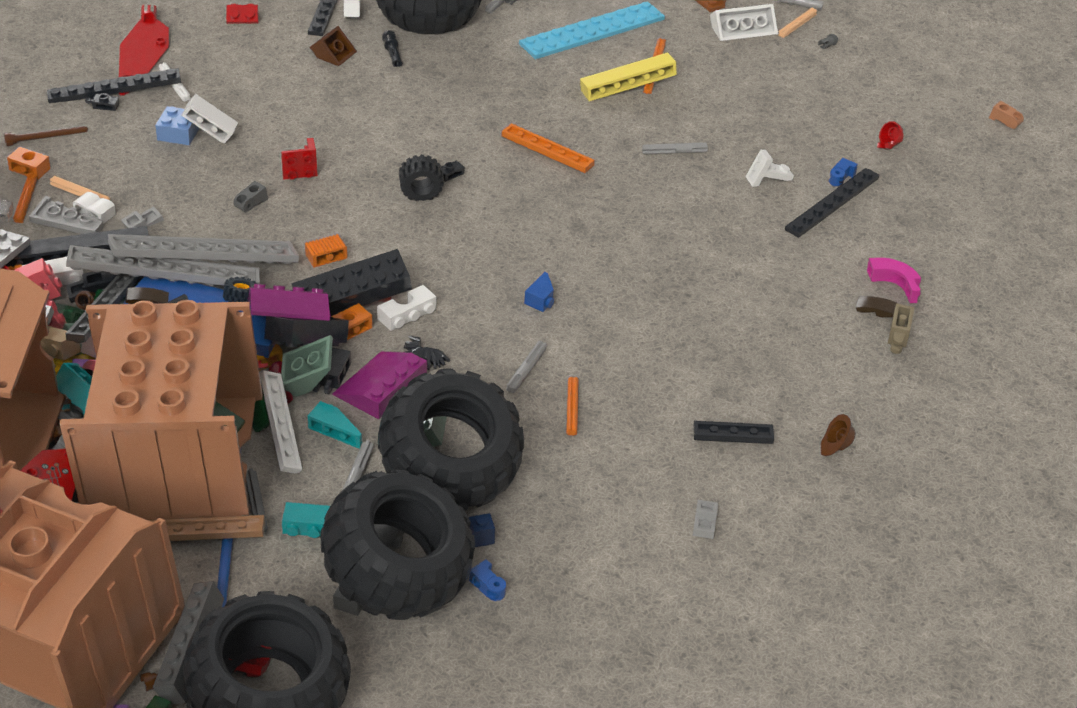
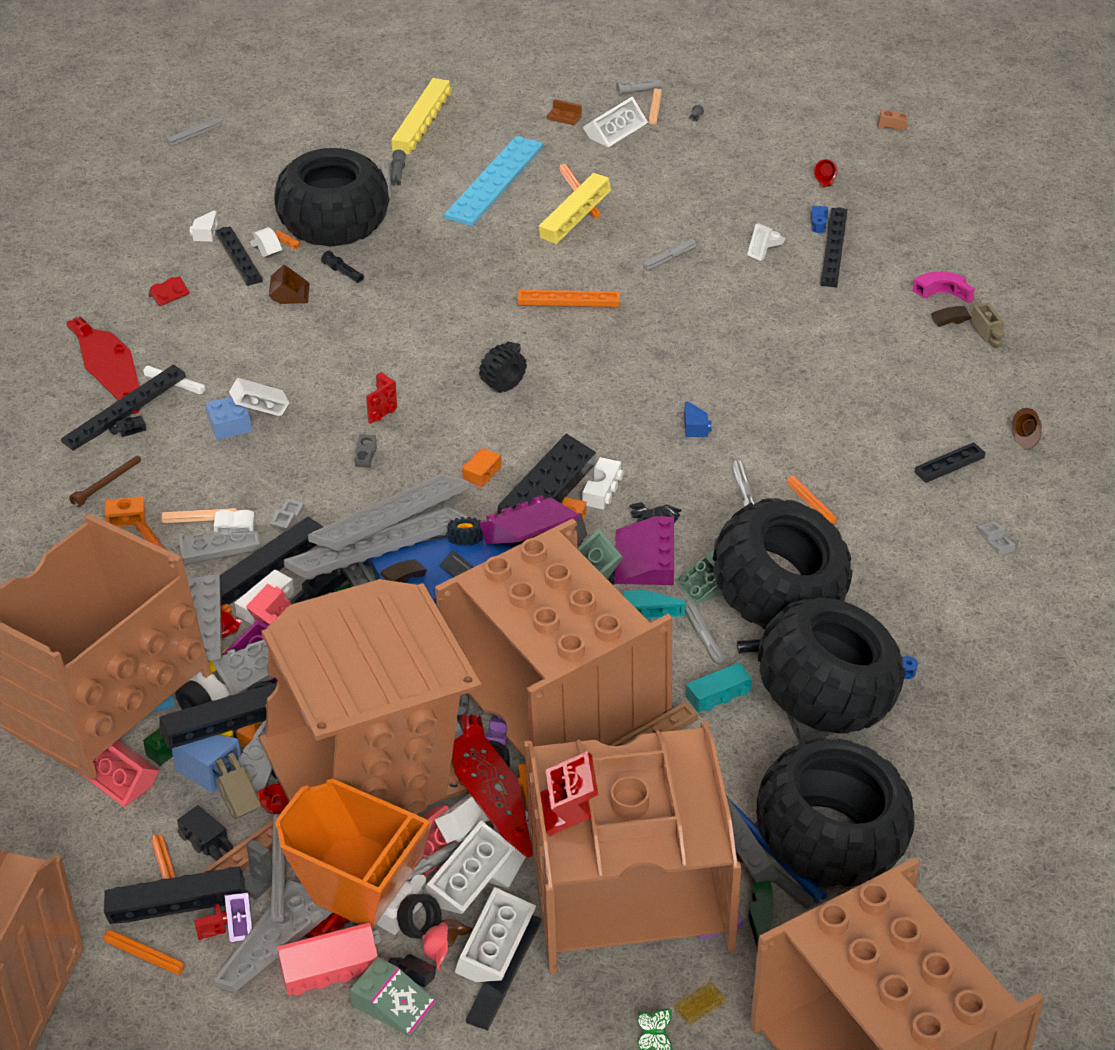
camera: 30 degrees left, 0 degrees up
(375, 12) = (287, 240): none -> orange axle

